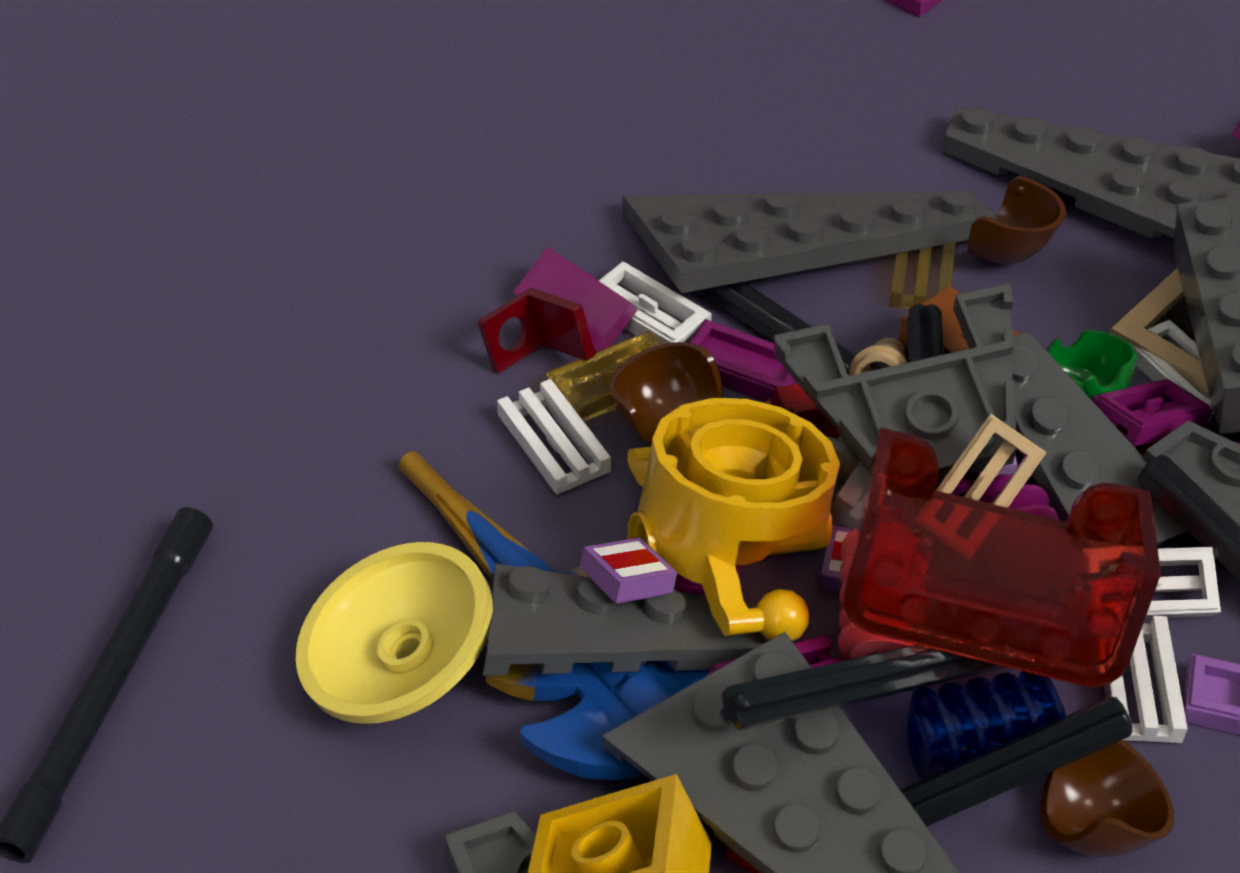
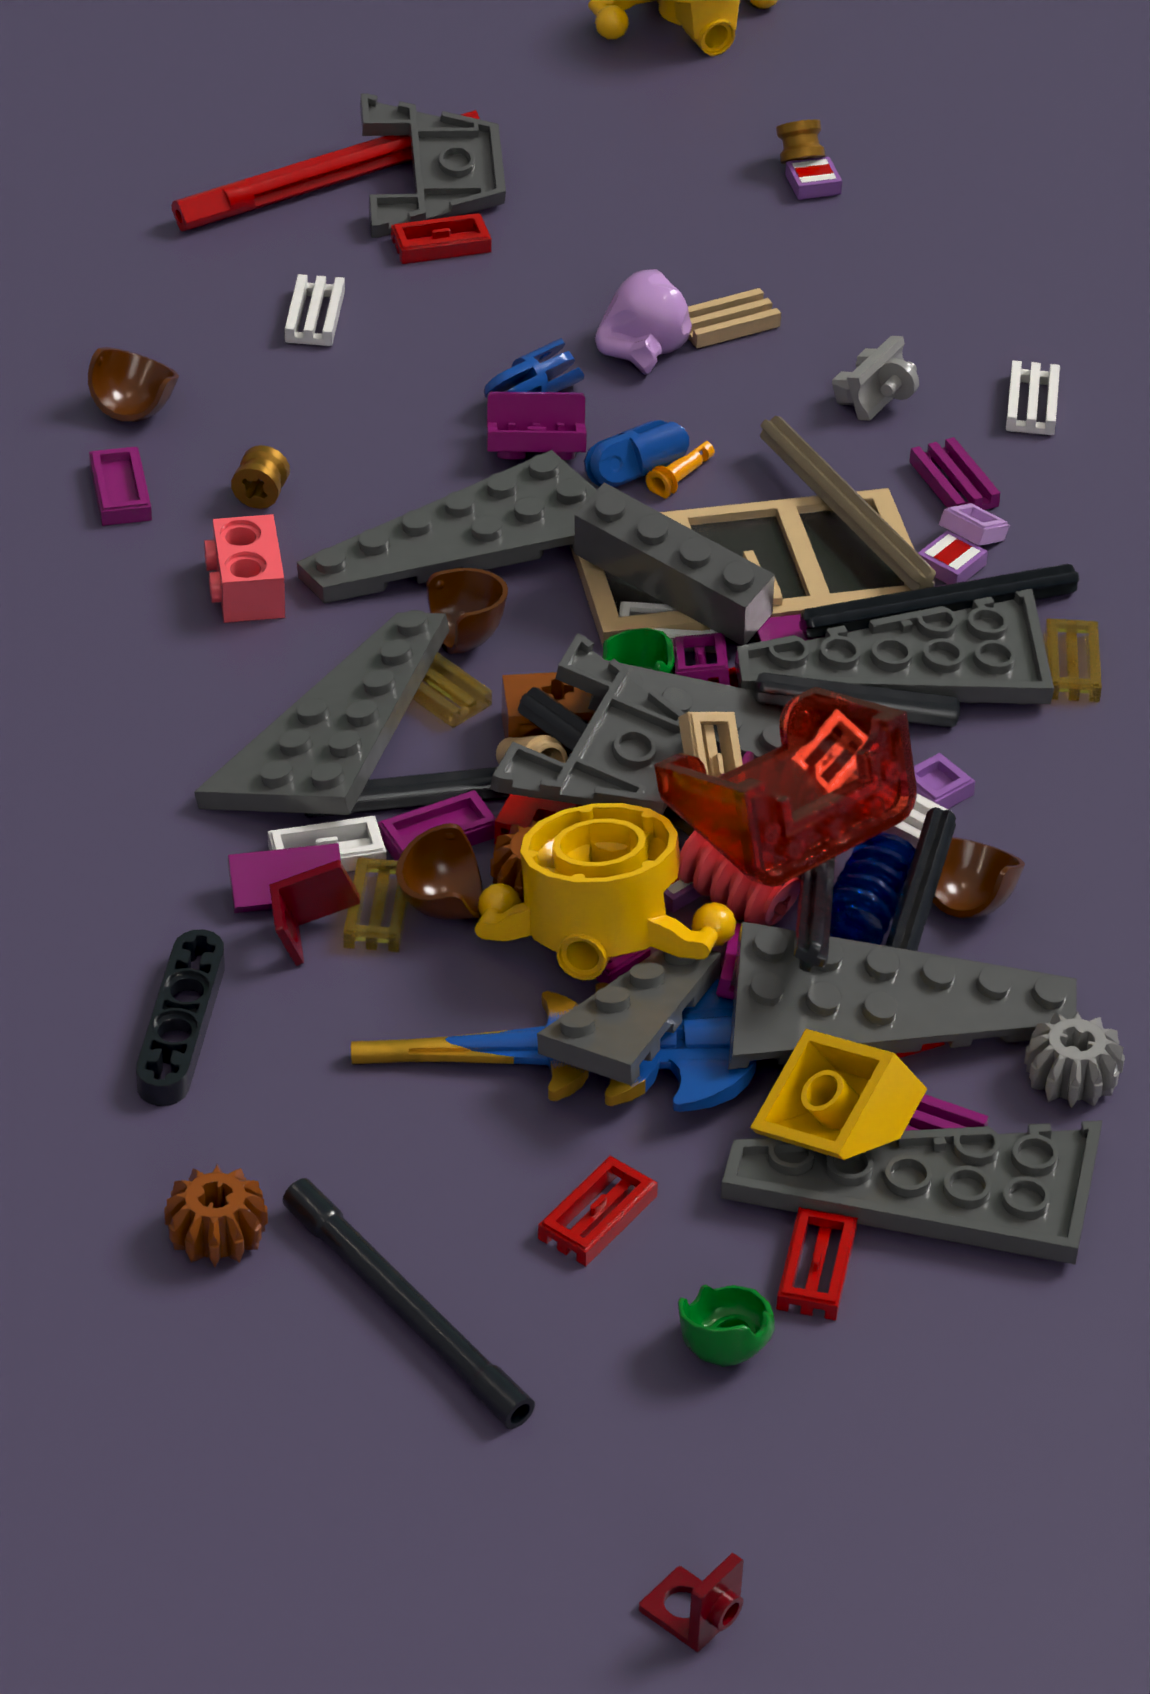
camera: 55 degrees left, 5 degrees down
(112, 480) = (216, 1215): none -> dark orange gear
(348, 766) = (607, 1215): none -> red tile
(351, 324) = (183, 1016): none -> black beam
(394, 632) = (534, 1089): light yellow dish -> none
(534, 404) = (406, 964): white tile -> none
(628, 570) = (613, 969): medium lavender tile -> none
(912, 84) = (246, 567): none -> coral brick
(1025, 34) = (260, 477): none -> pearl gold wheel

